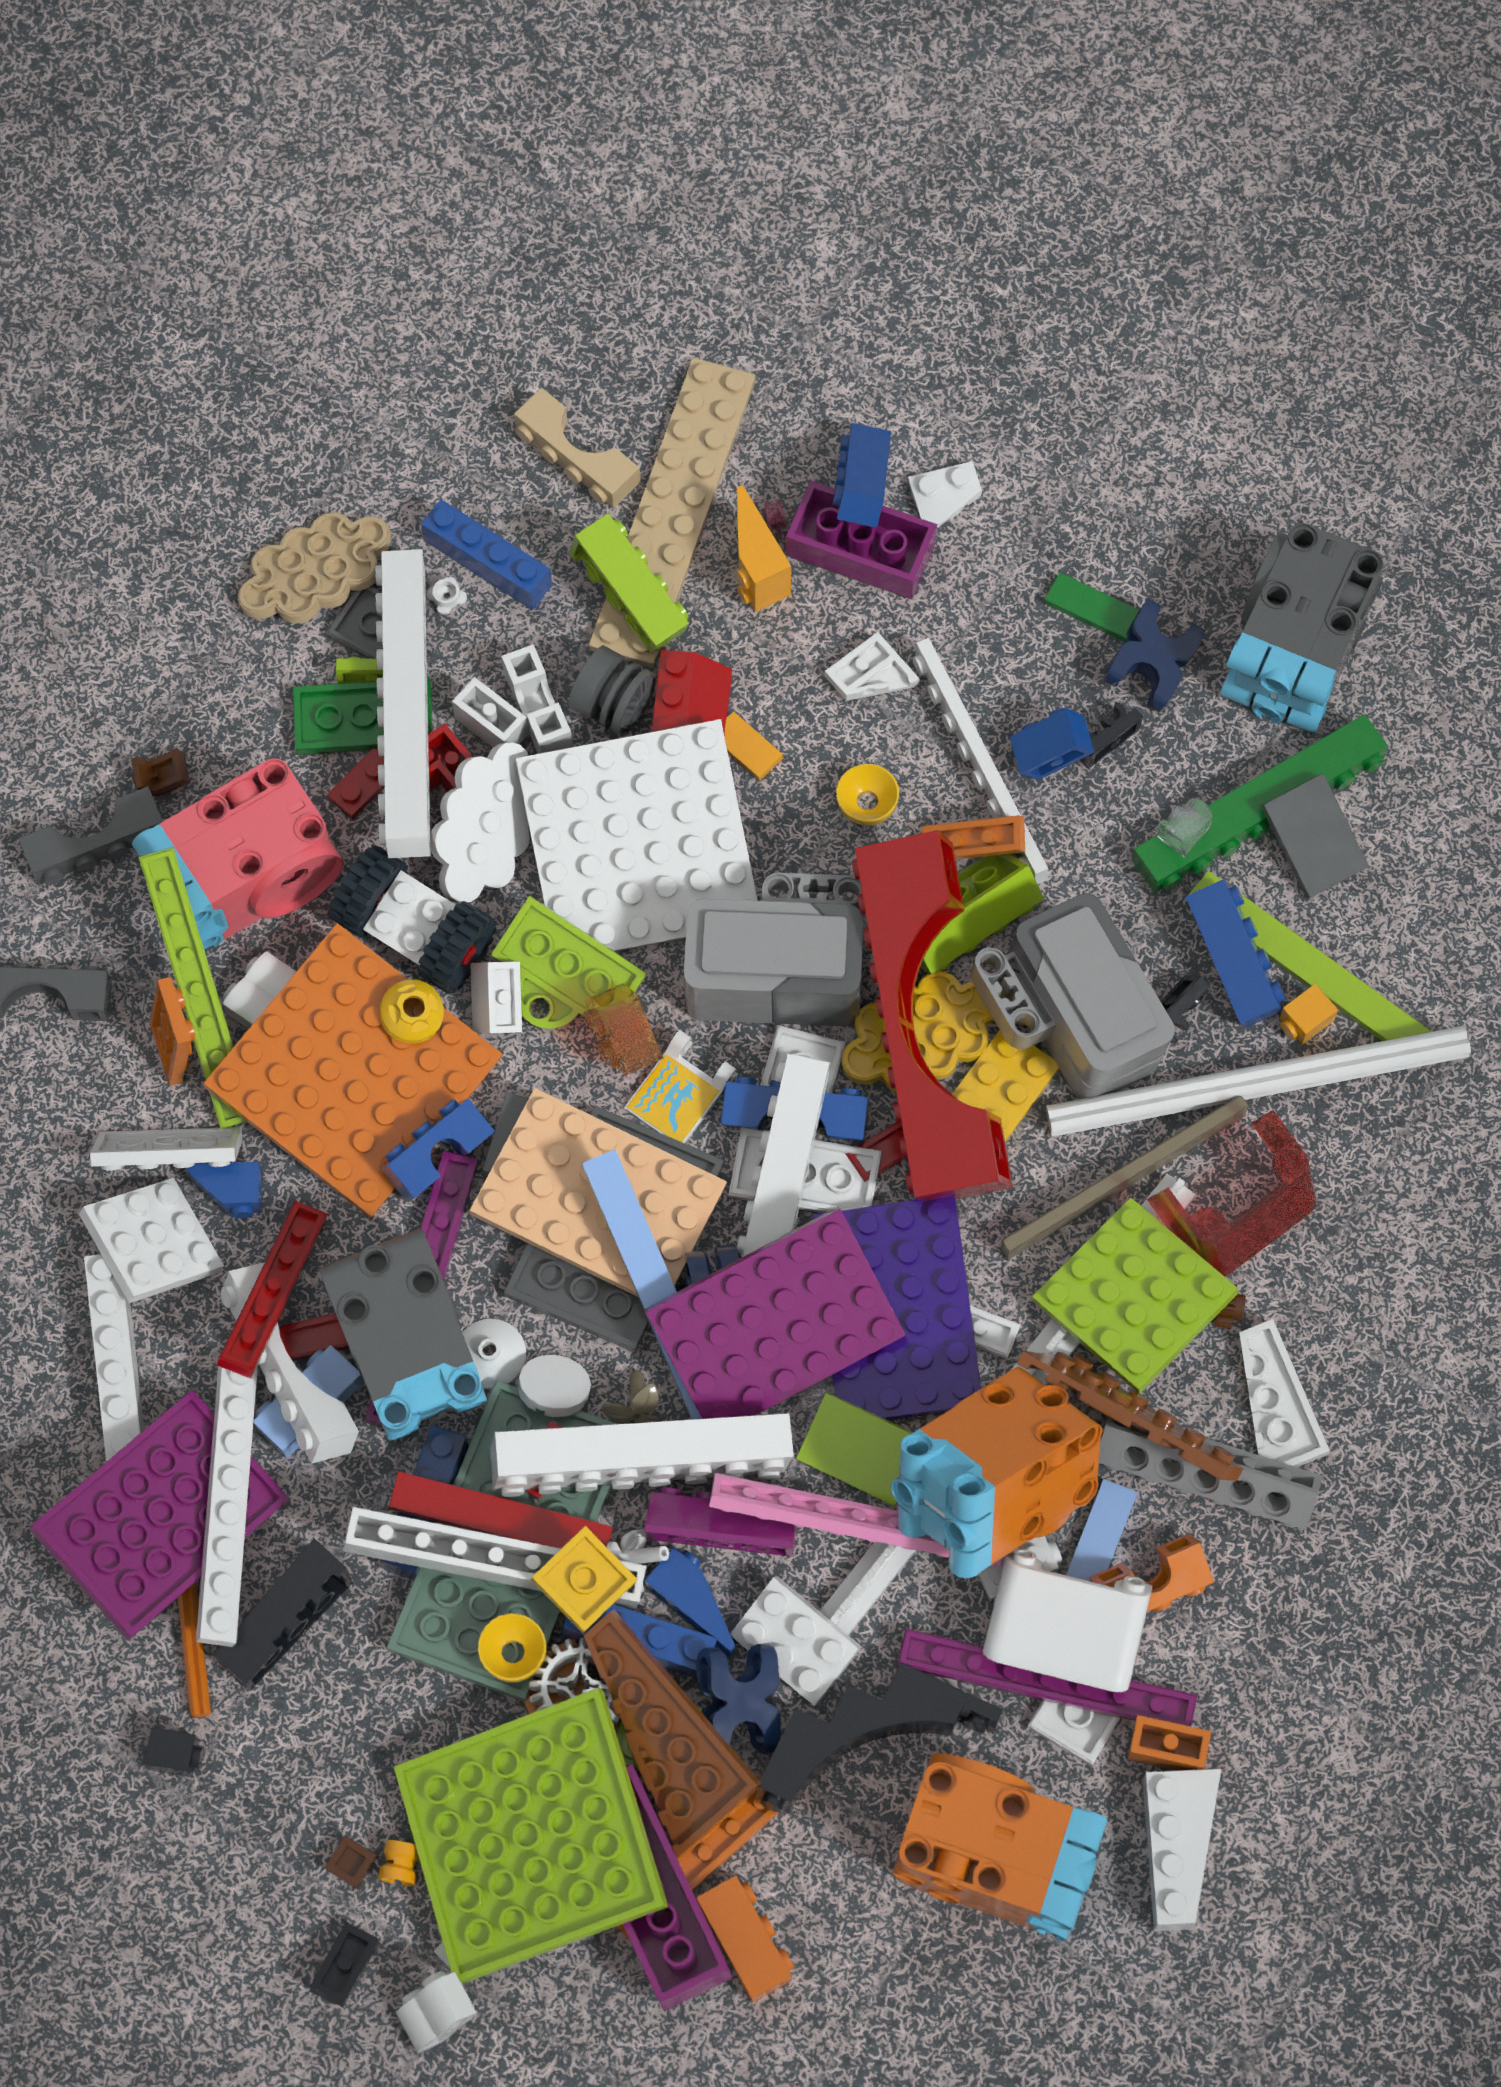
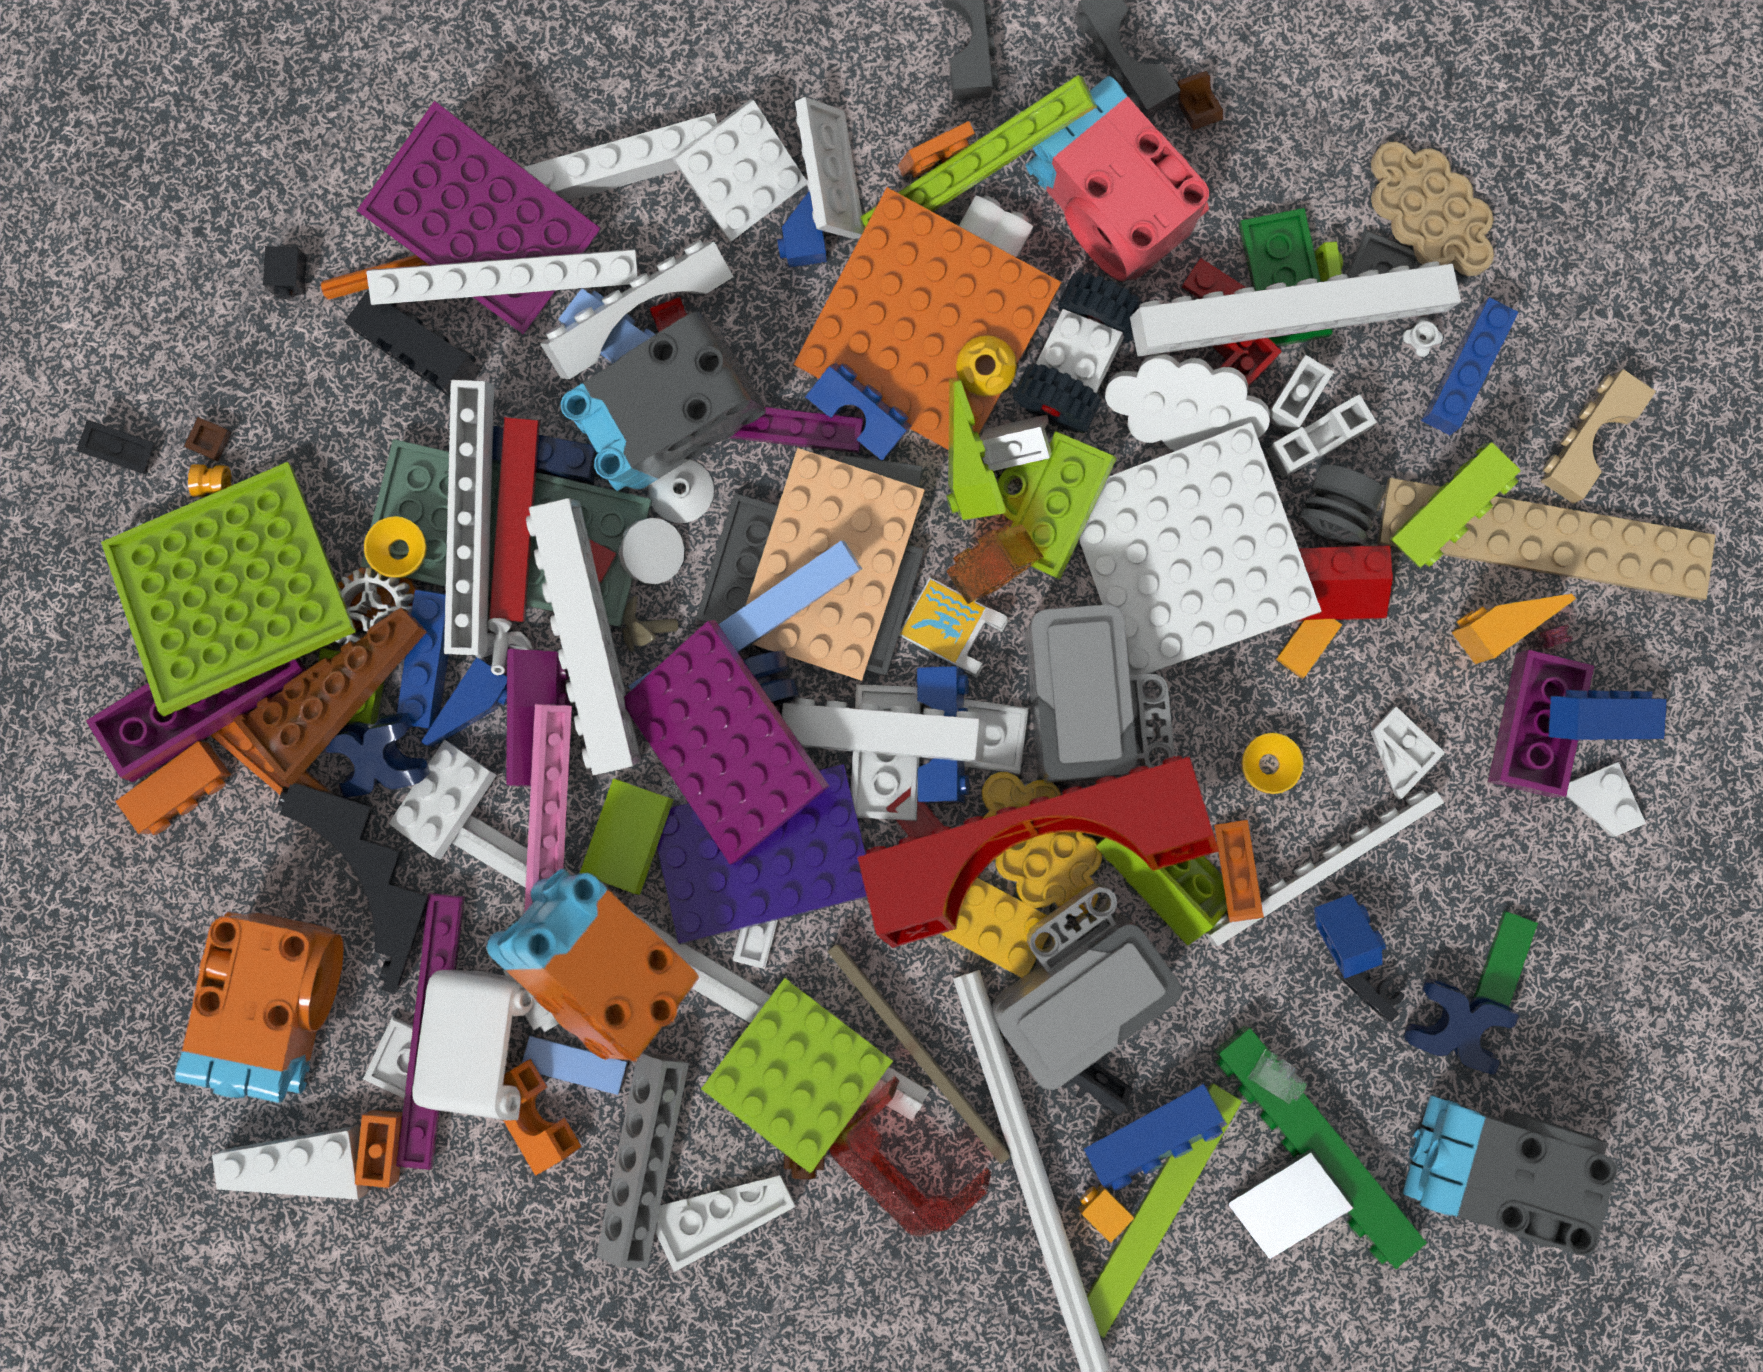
camera: 80 degrees right, 15 degrees up
(272, 1290) = (700, 282): red tile -> none
(435, 2011) = (78, 530): white brick -> none
(521, 1046) = (969, 479): none -> lime wedge
(584, 1579) = (449, 600): yellow plate -> none
(1130, 1409) = (676, 1081): dark orange wing -> none

